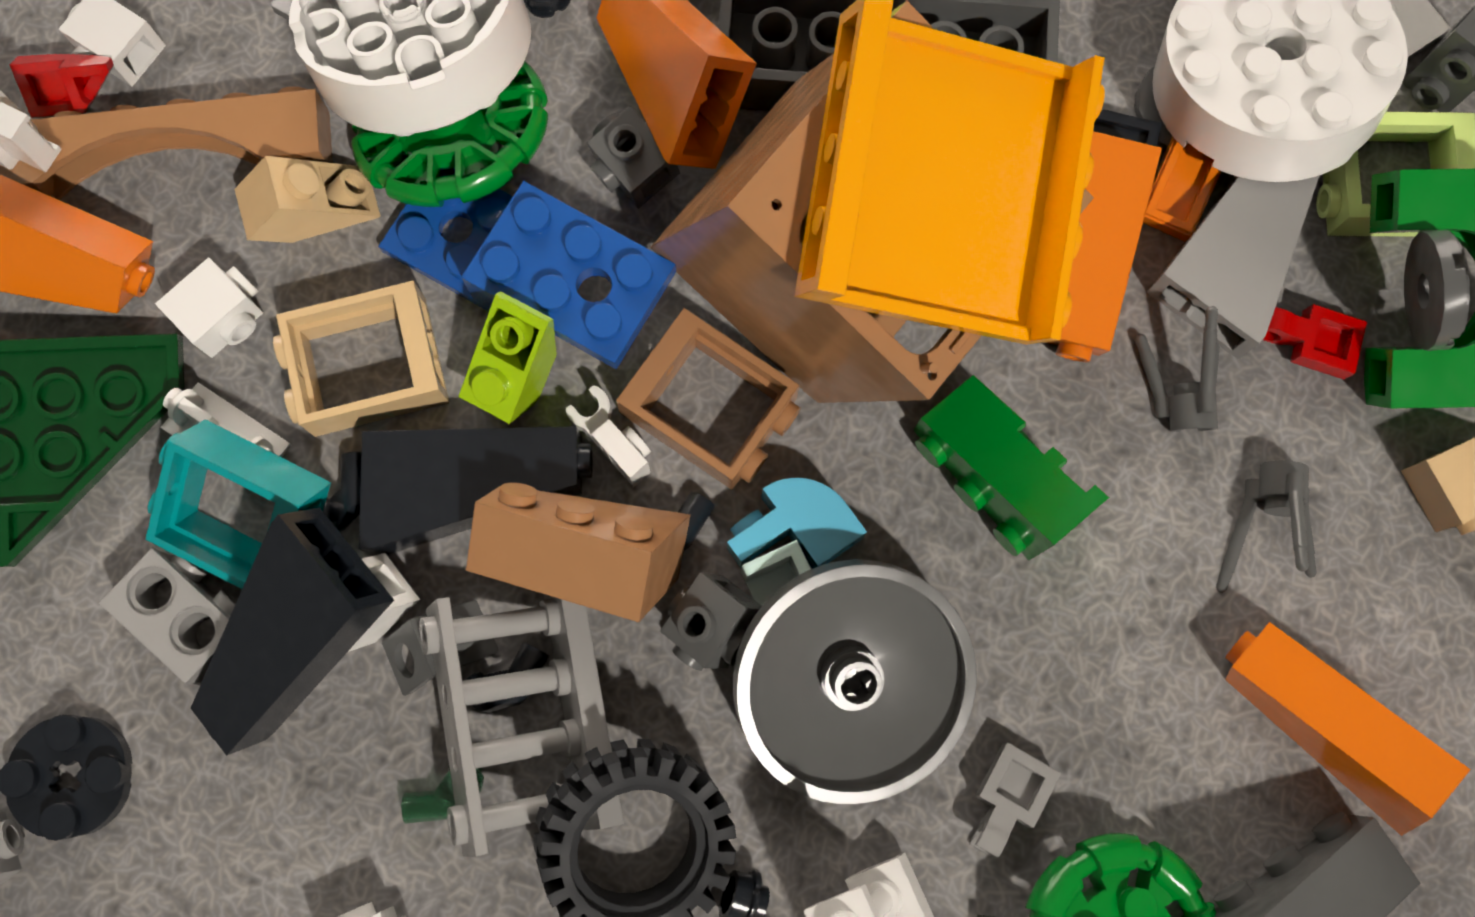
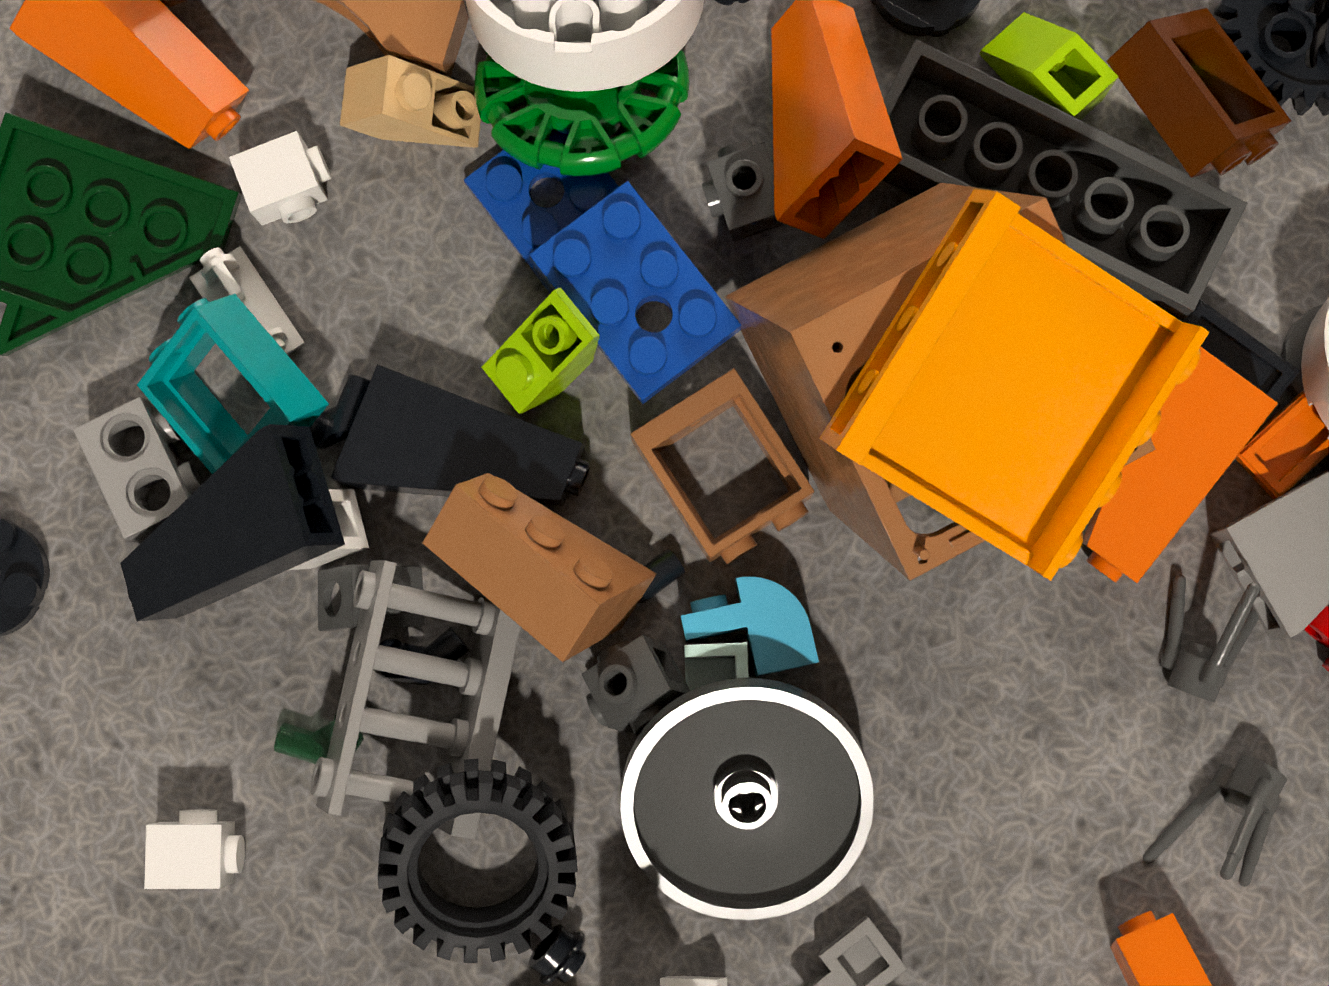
camera: 30 degrees right, 5 degrees up
(348, 313) = (342, 258): tan window -> none
(622, 448) = (619, 479): white plate -> none
(1004, 470) = (979, 656): green wedge -> none

